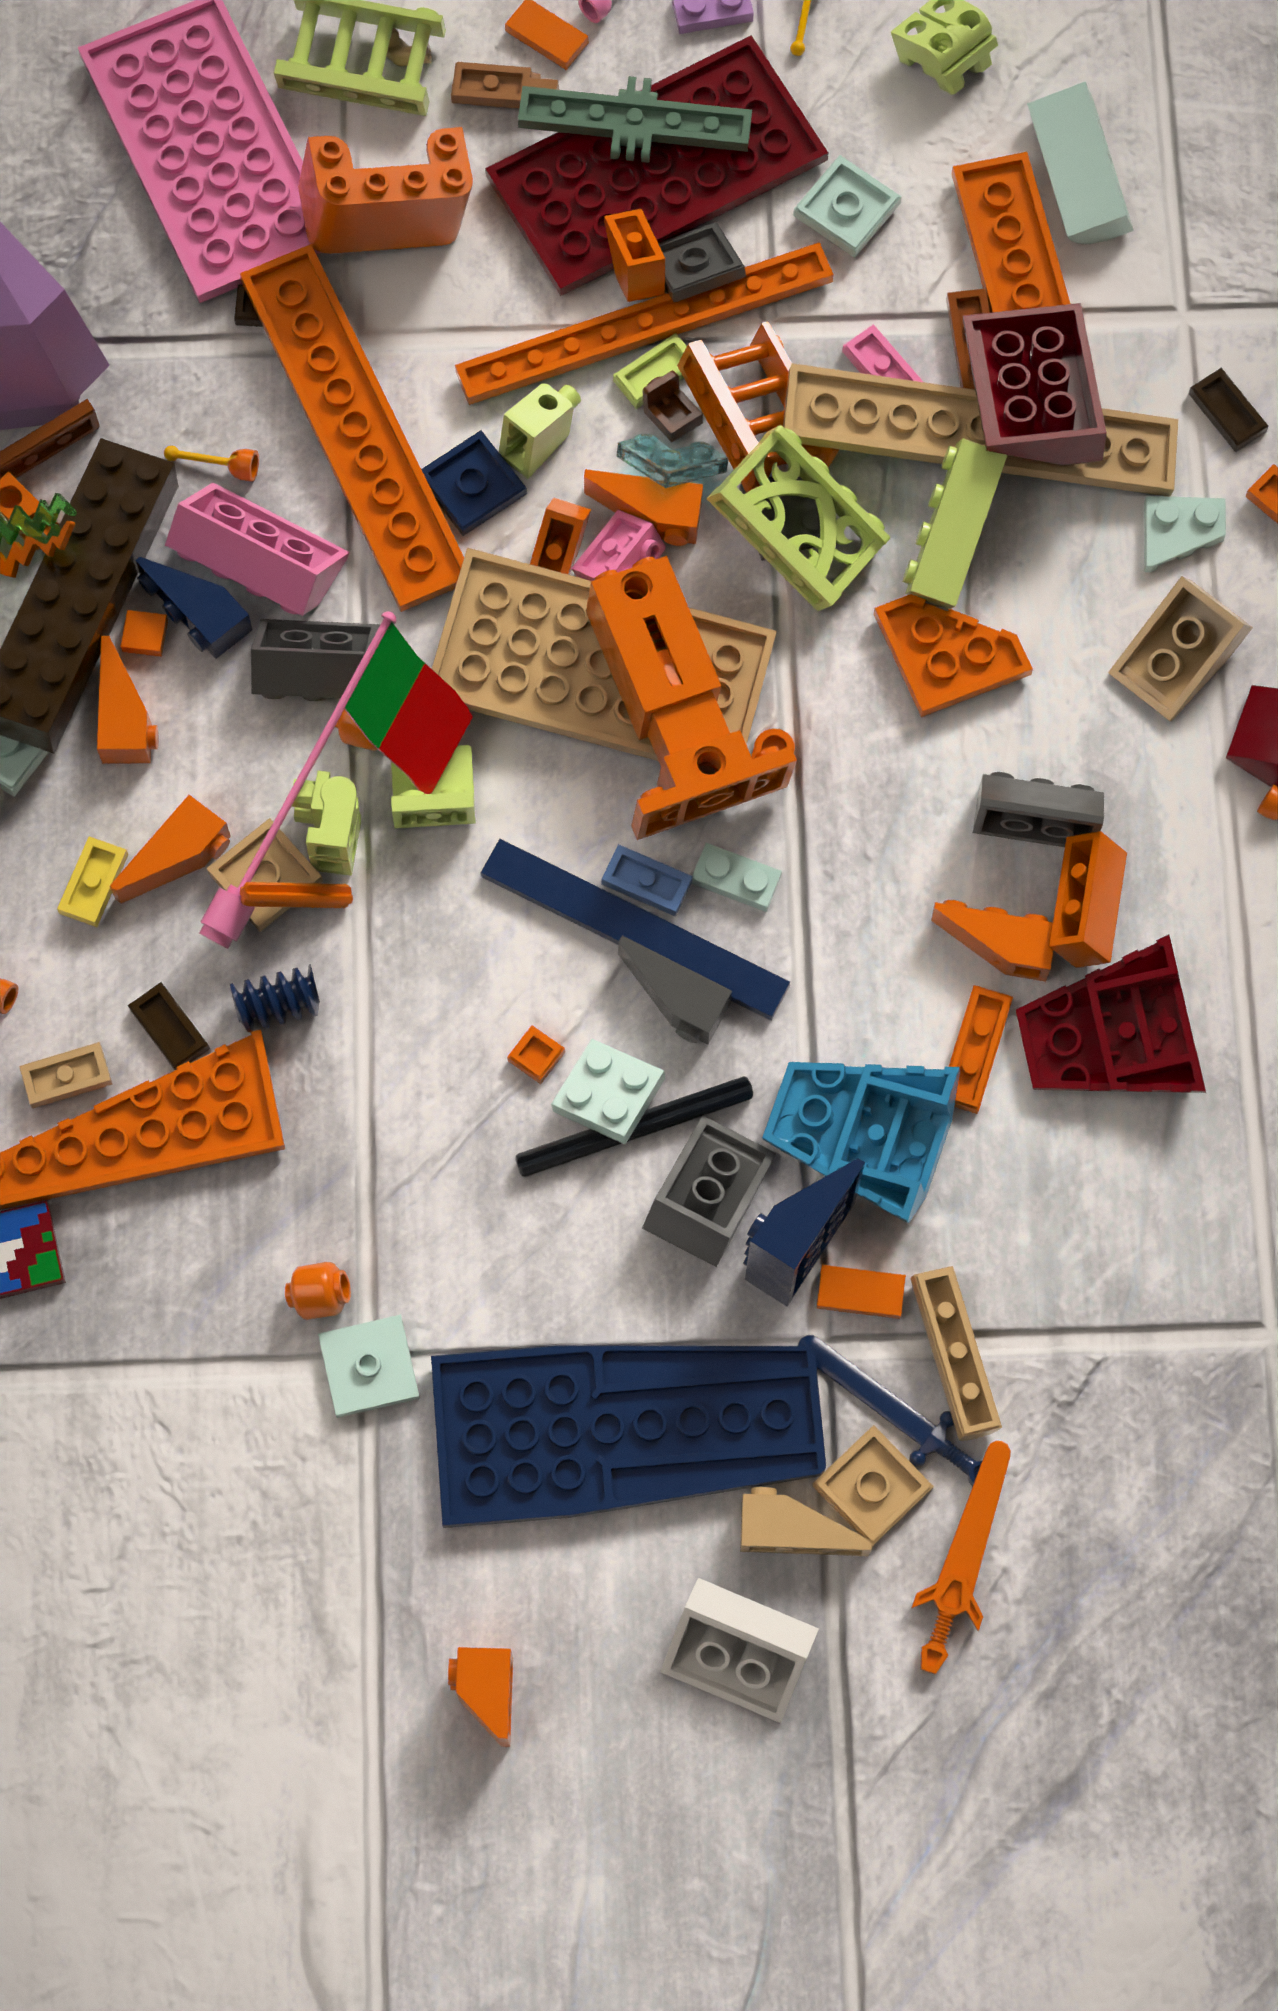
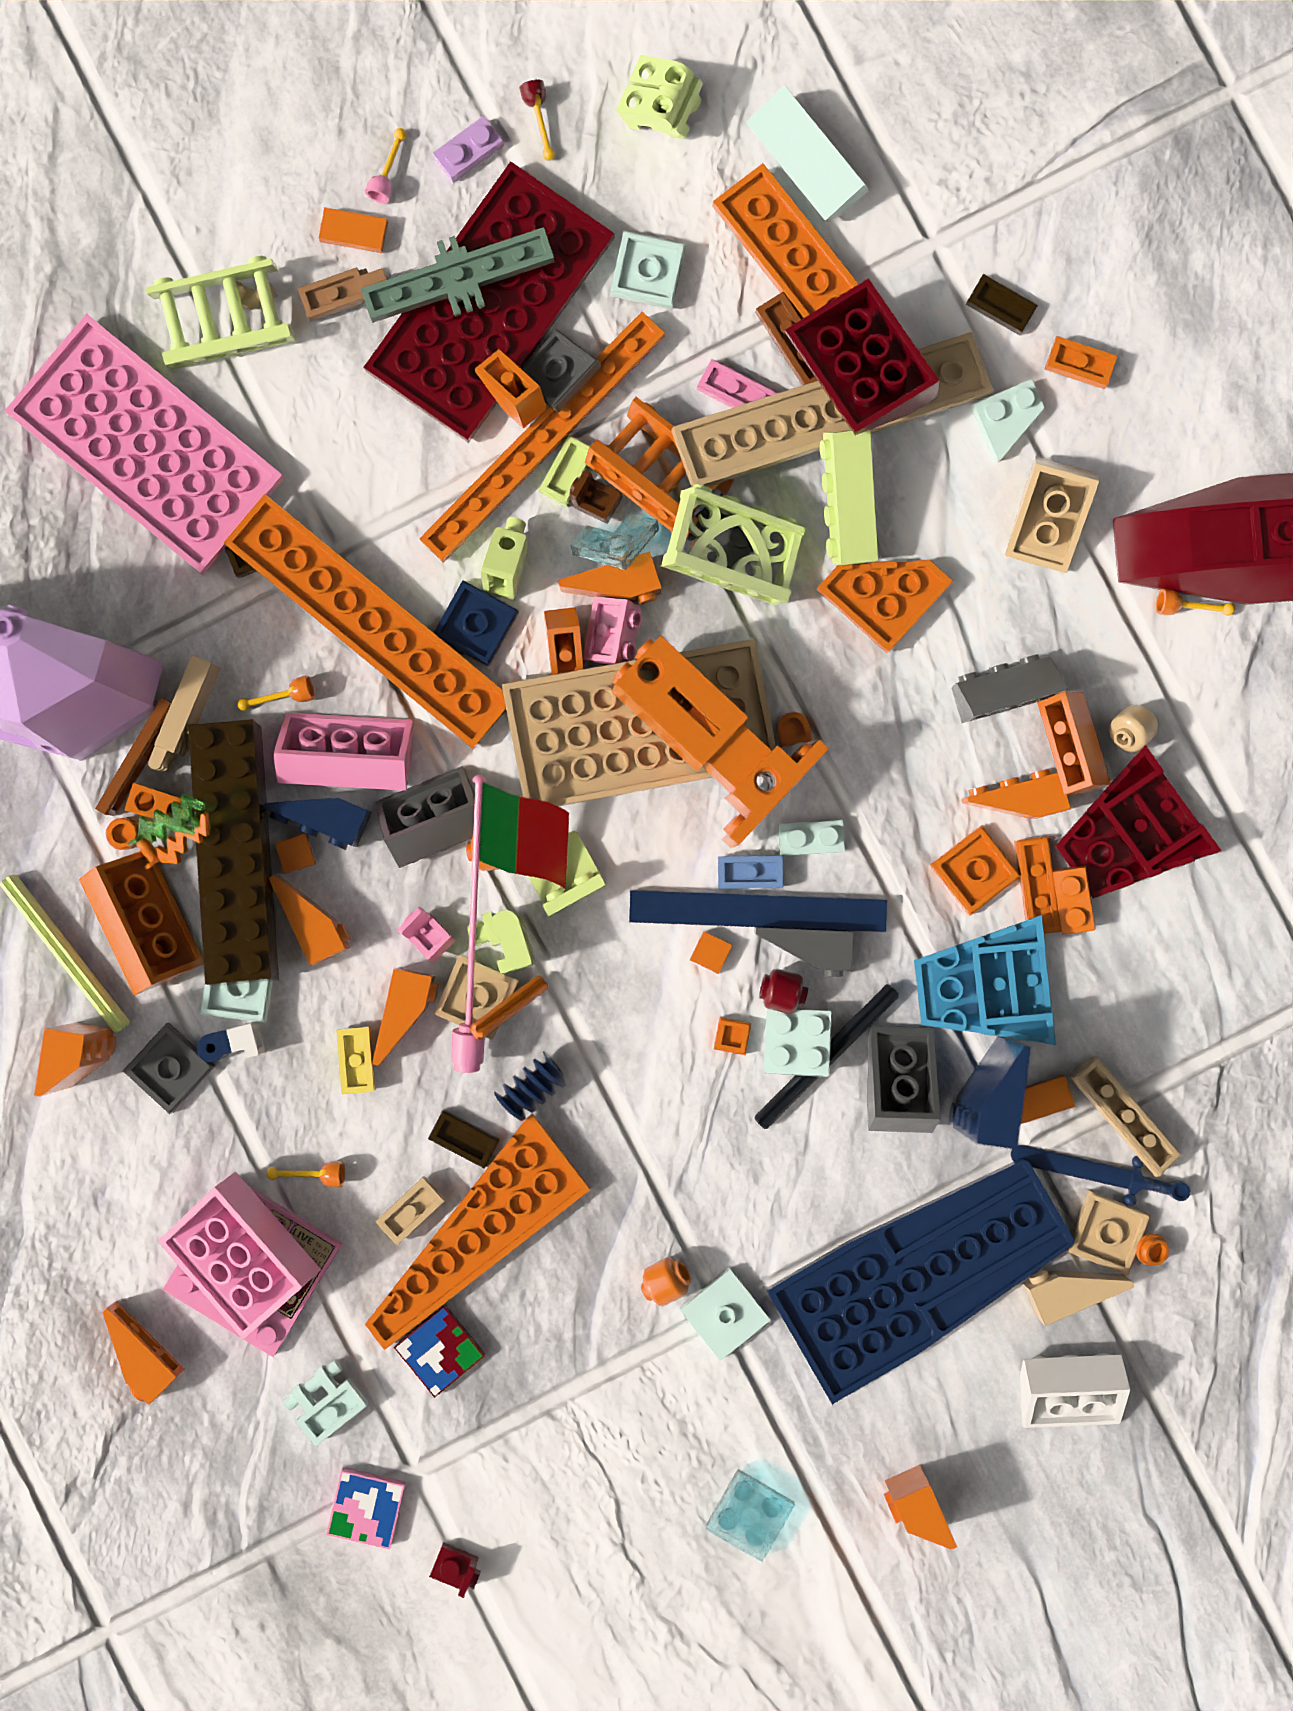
camera: 25 degrees left, 15 degrees up
(112, 420) = (184, 711): none -> tan hinge
(244, 778) = (426, 934): none -> bright pink bracket
(279, 1614) = (750, 1515): none -> clear light blue plate
(384, 205) = (307, 440): orange windscreen -> none
(557, 950) = (710, 952): none -> orange tile
(619, 1024) = (783, 991): none -> dark red head
(910, 998) = (975, 870): none -> orange tile
(915, 1527) = (1152, 1249): none -> orange plate
(961, 1568) = (1195, 1260): orange sword -> none
(1009, 1078) = (1074, 899): none -> orange plate
(1166, 914) = (1133, 728): none -> tan head

